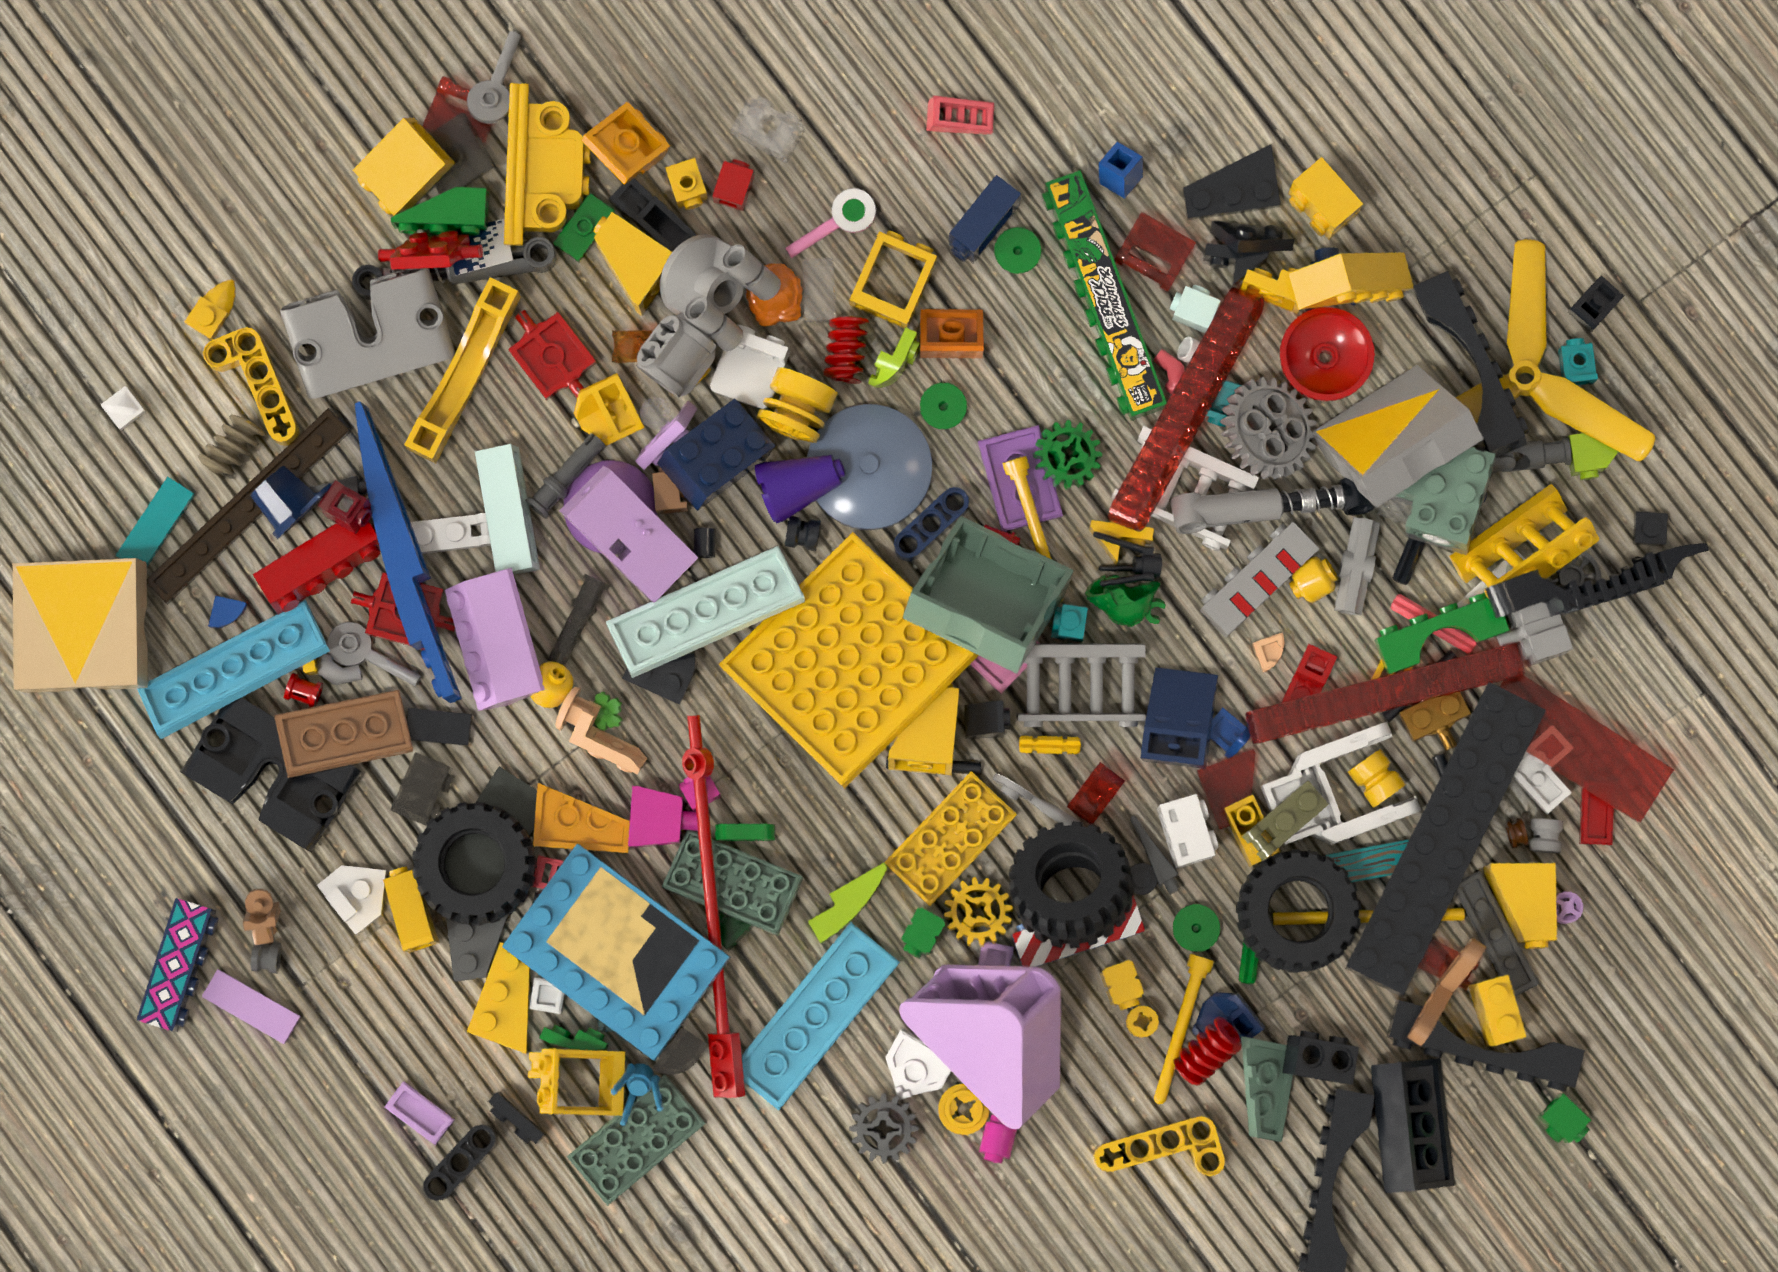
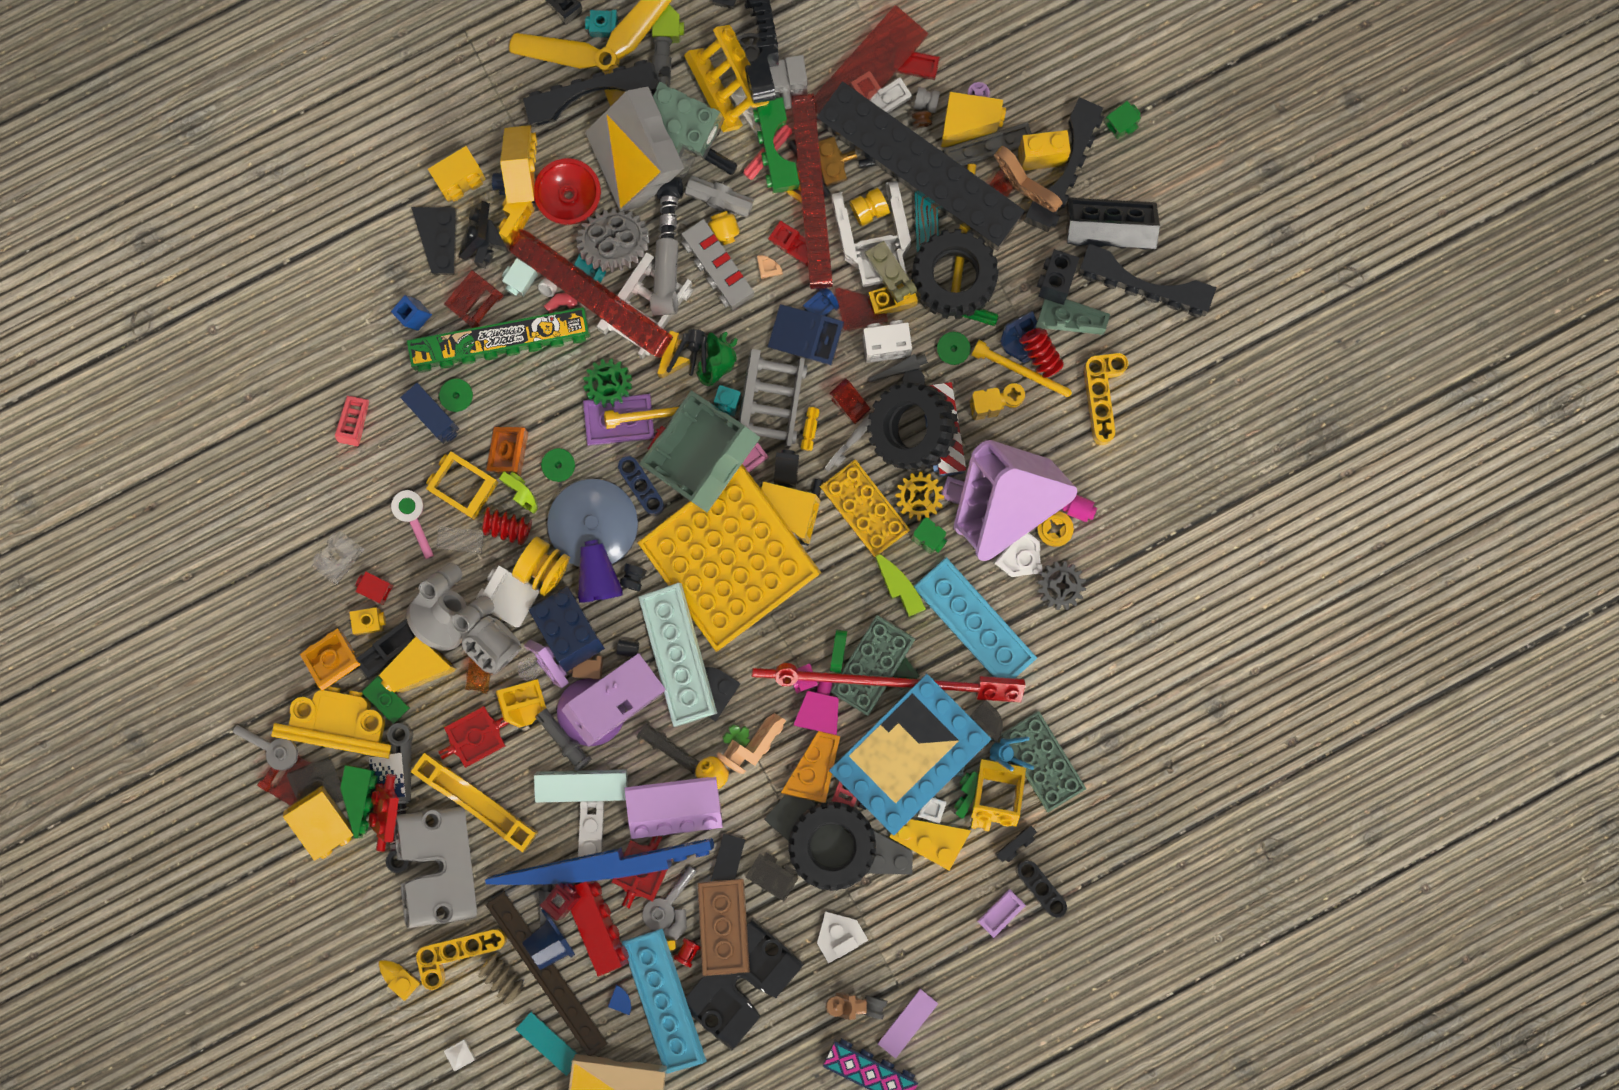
camera: 85 degrees left, 0 degrees up
(410, 911) = (857, 898): yellow slope -> none
(784, 305) = (469, 566): orange hair -> none

